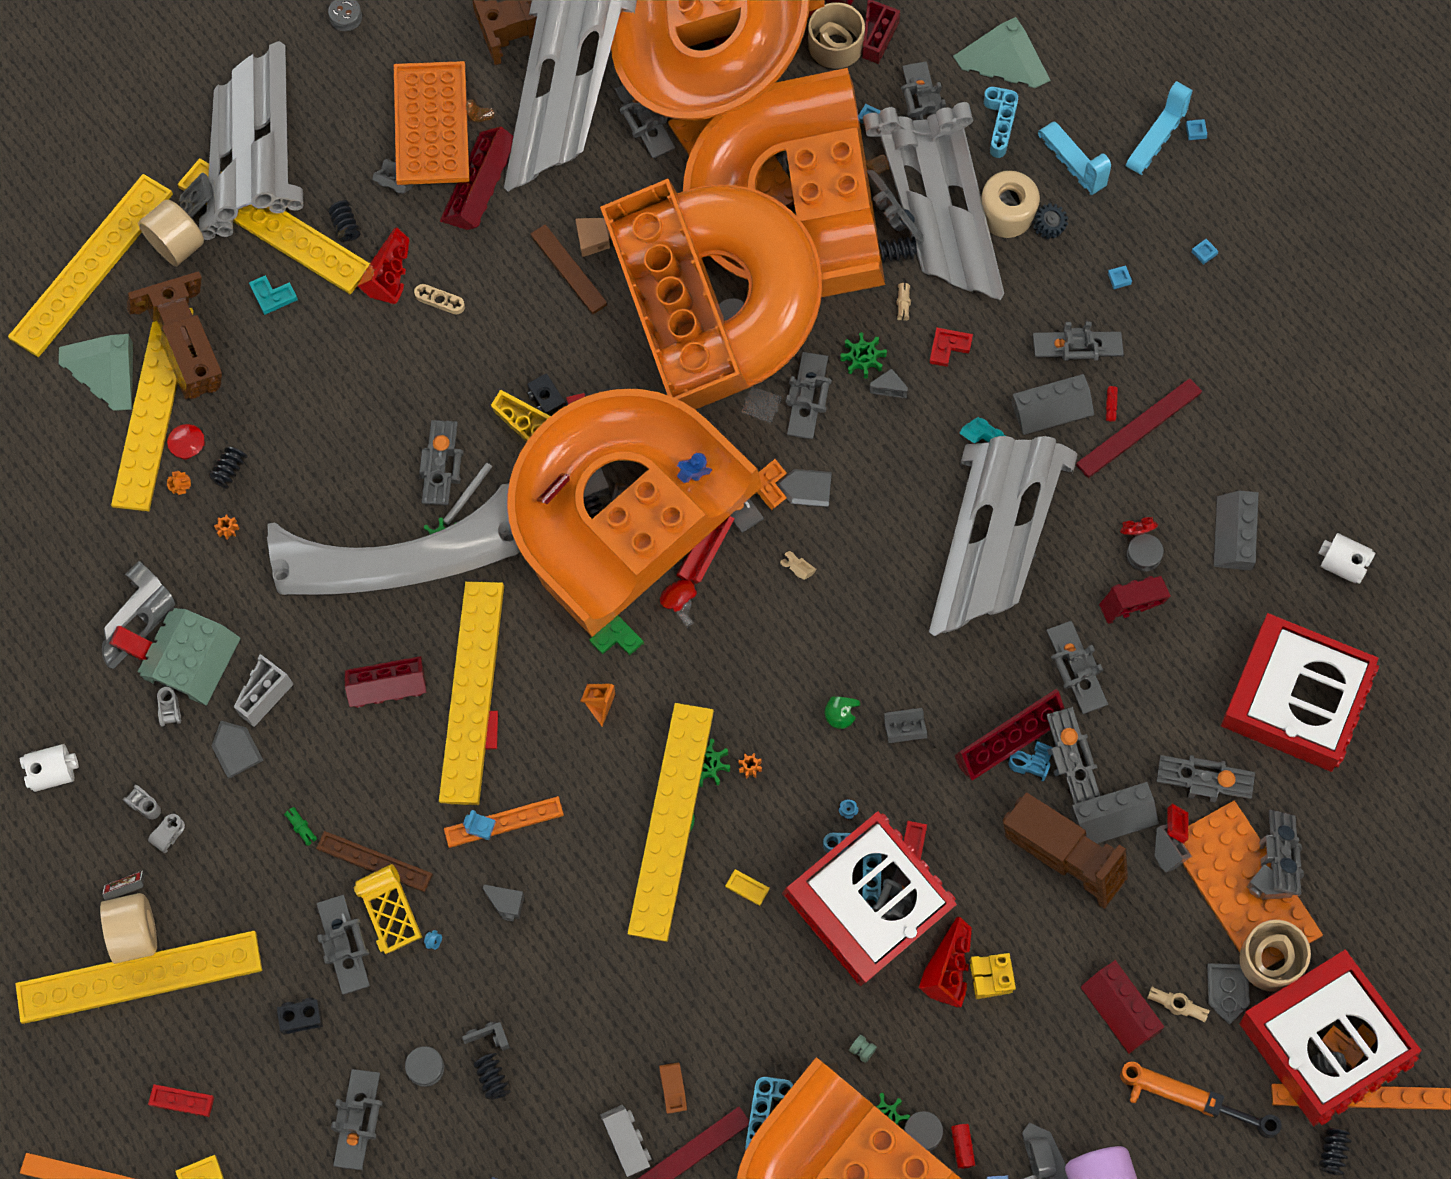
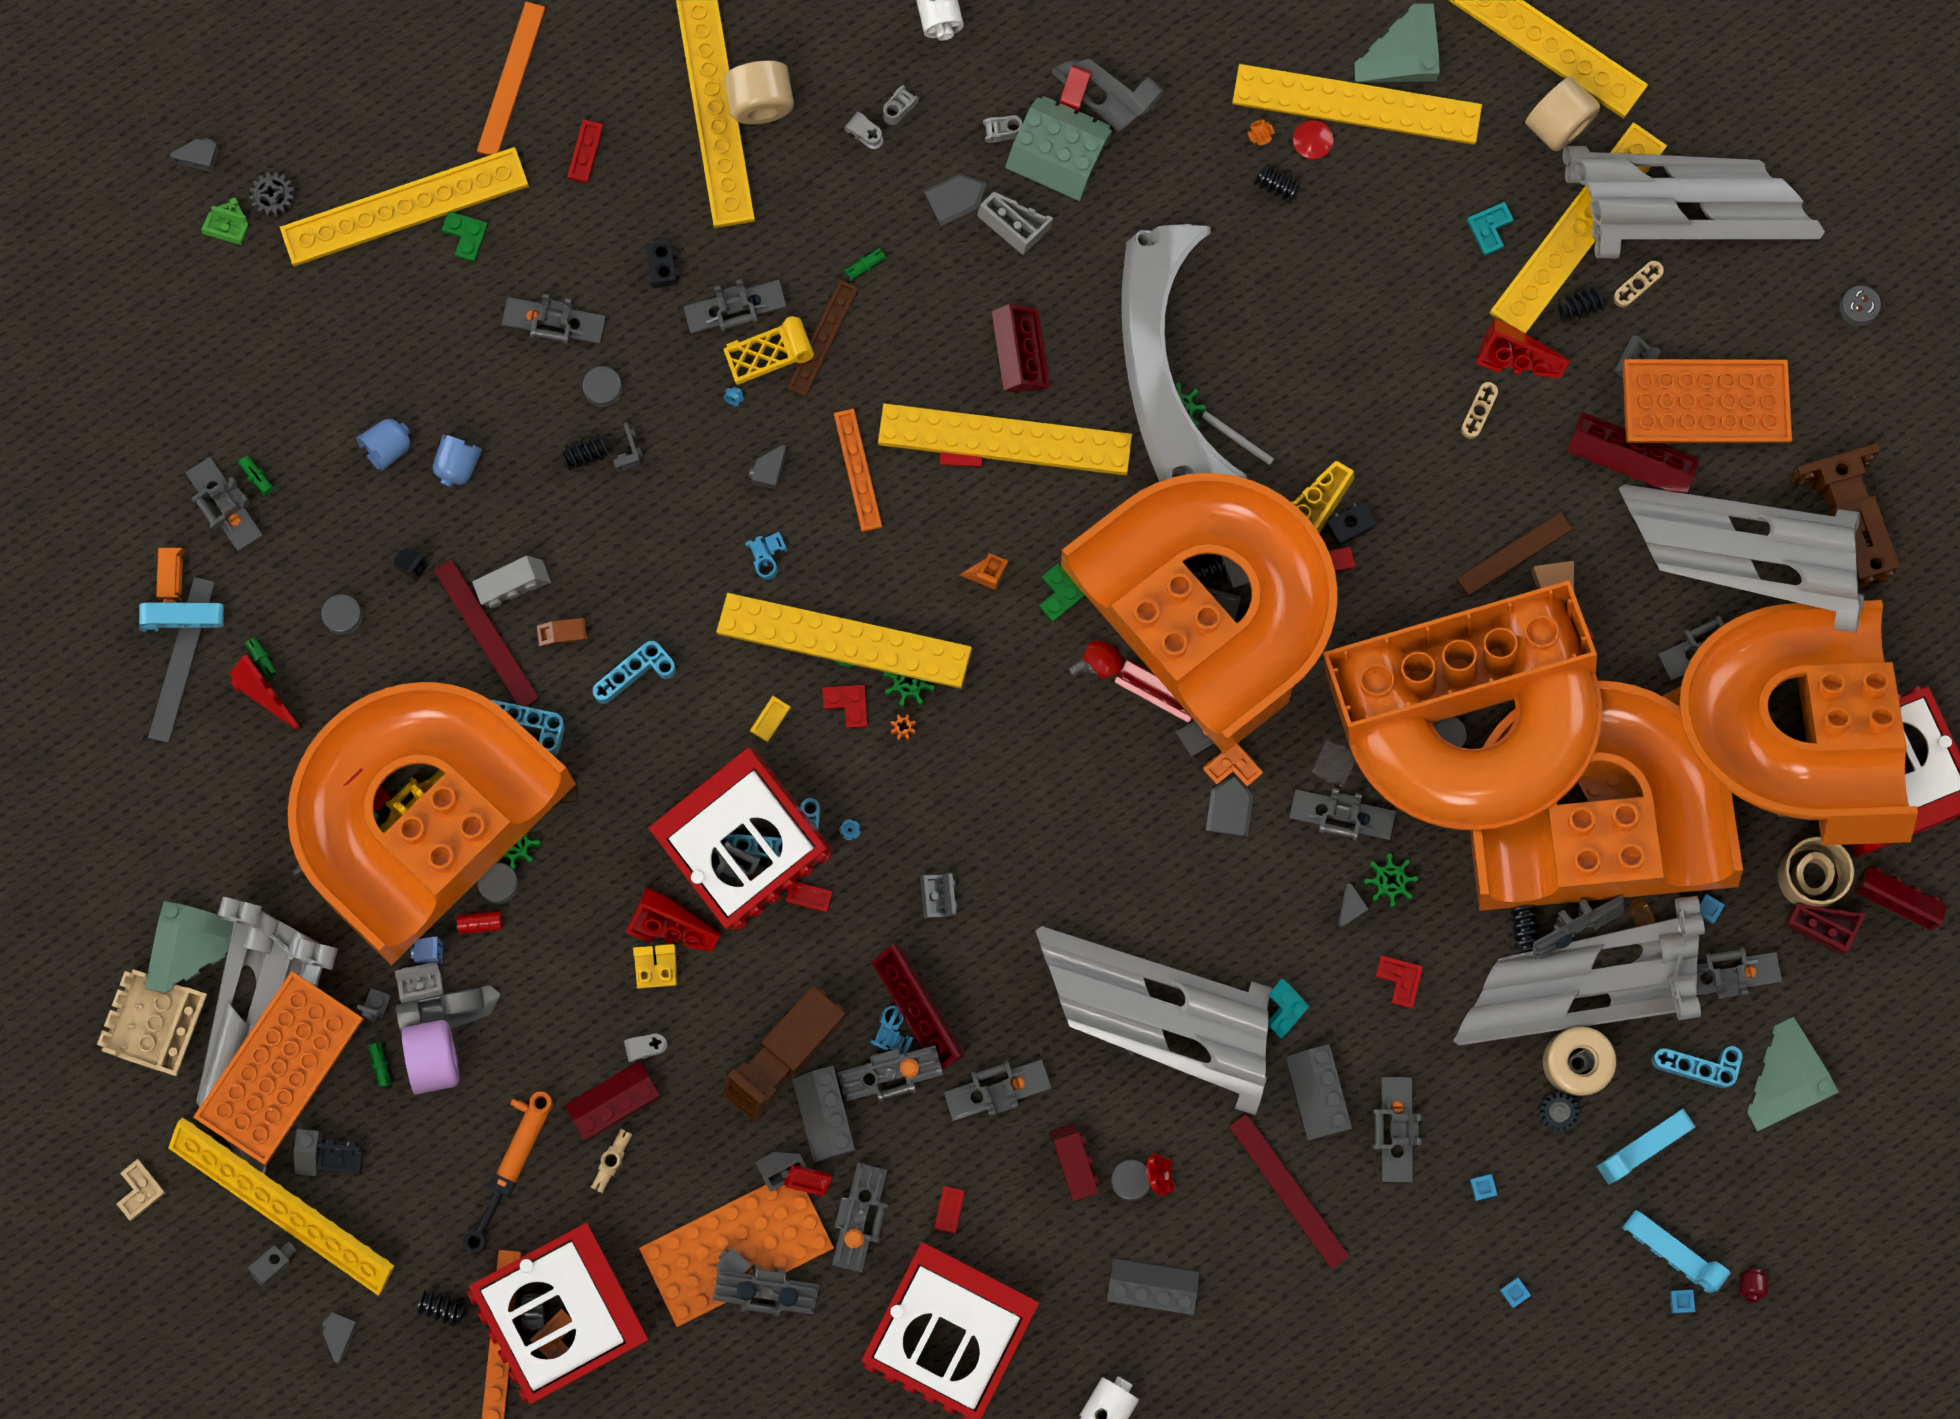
camera: 90 degrees right, 10 degrees up
(123, 886) = (807, 88): tile -> none
(181, 332) = (1434, 128): reddish brown brick -> none
(196, 195) = (1611, 139): dark grey tile -> none
(230, 523) = (1206, 188): orange gear -> none
(322, 173) = (1645, 270): none -> tan beam
(433, 462) = (1273, 400): dark grey piece -> none
(478, 114) = (1721, 455): clear orange hair -> none
(479, 825) = (852, 443): dark azure bracket -> none
(554, 488) = (1228, 525): dark red tile -> none
(583, 902) = (765, 549): none -> dark azure piece
(693, 468) = (1238, 673): blue hips -> none
(712, 1019) = (632, 675): none -> medium azure beam
(725, 813) = (850, 698): none -> red plate
(799, 566) = (1131, 794): tan plate -> none
(838, 711) = (958, 823): green helmet -> none
(862, 1048) = (587, 827): sand green wheel -> none
(903, 301) = (1459, 932): tan pin -> none
(1068, 983) = (641, 1046): none -> light grey piece
(1111, 405) = (1320, 1162): red axle -> none
(1177, 74) = (1753, 1285): none -> dark red head
(1187, 703) = (949, 1209): none -> red tile
(1227, 990) = (625, 1217): dark grey tile -> none
(1289, 941) = (626, 1255): tan piece -> none

